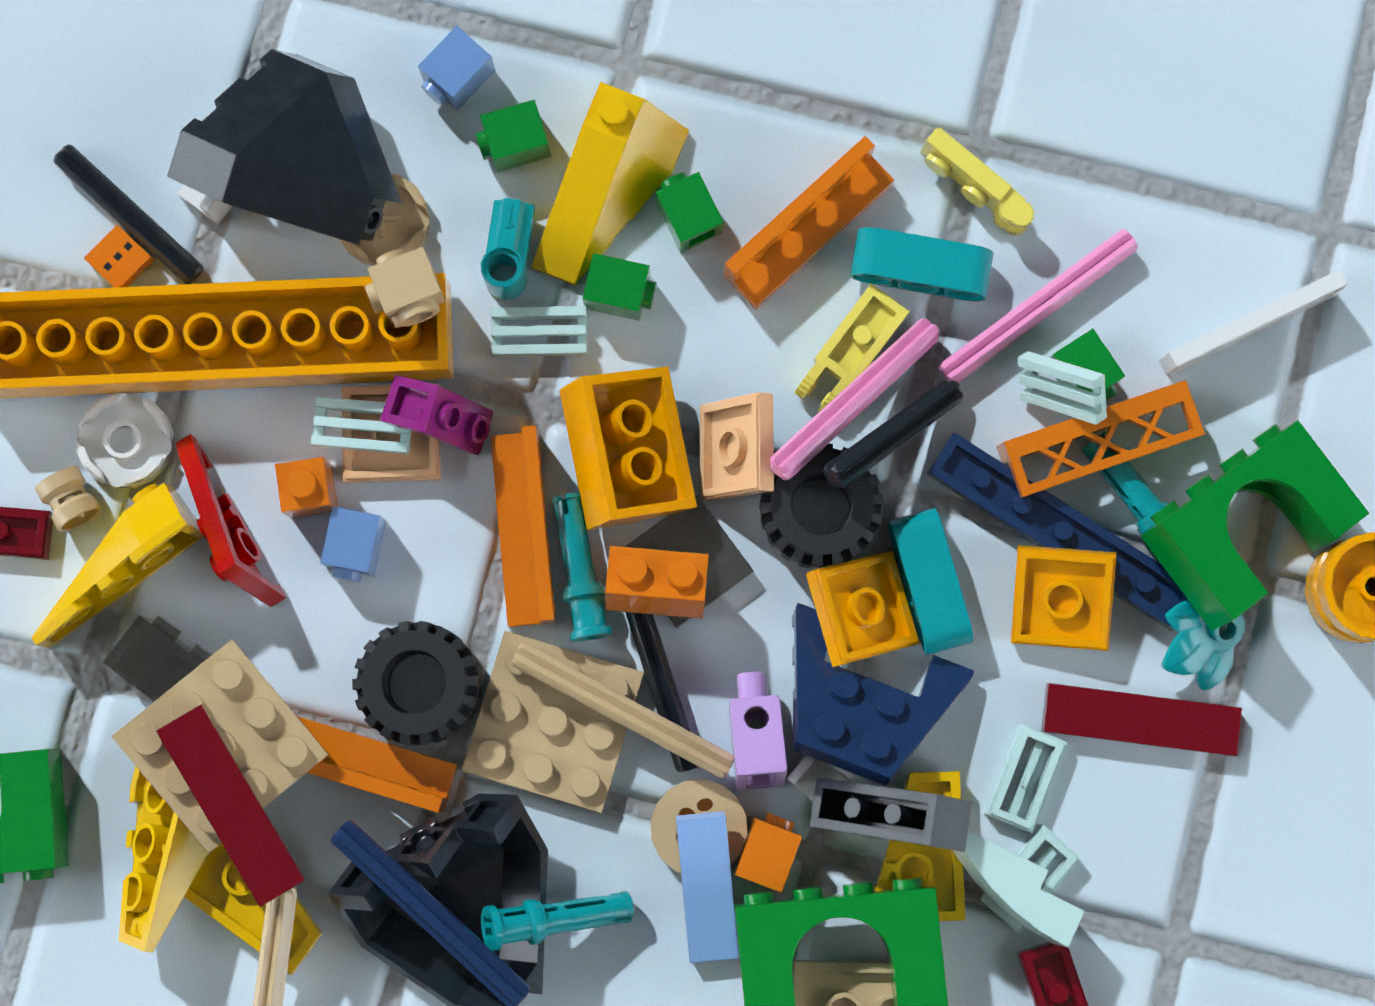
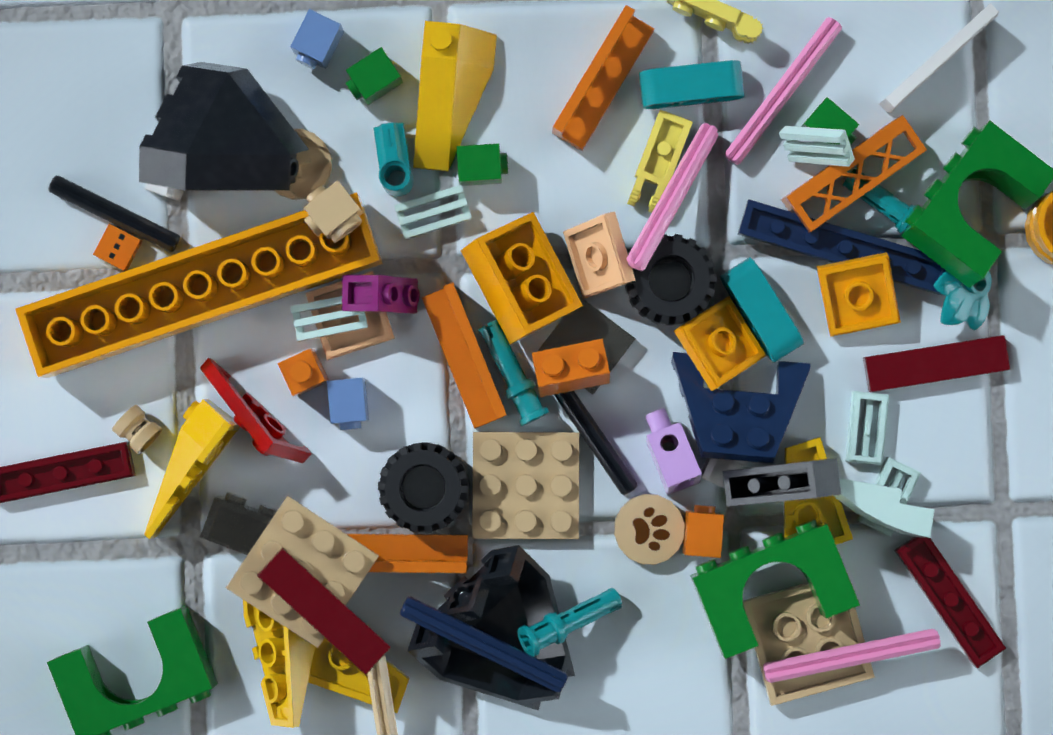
camera: 15 degrees left, 5 degrees up
(124, 440) = (163, 376): white tile -> none
(623, 710) = (573, 464): tan axle -> none
(688, 210) = (514, 94): green brick -> none
(707, 886) = (667, 568): light blue tile -> none
(892, 434) = (707, 214): black axle -> none

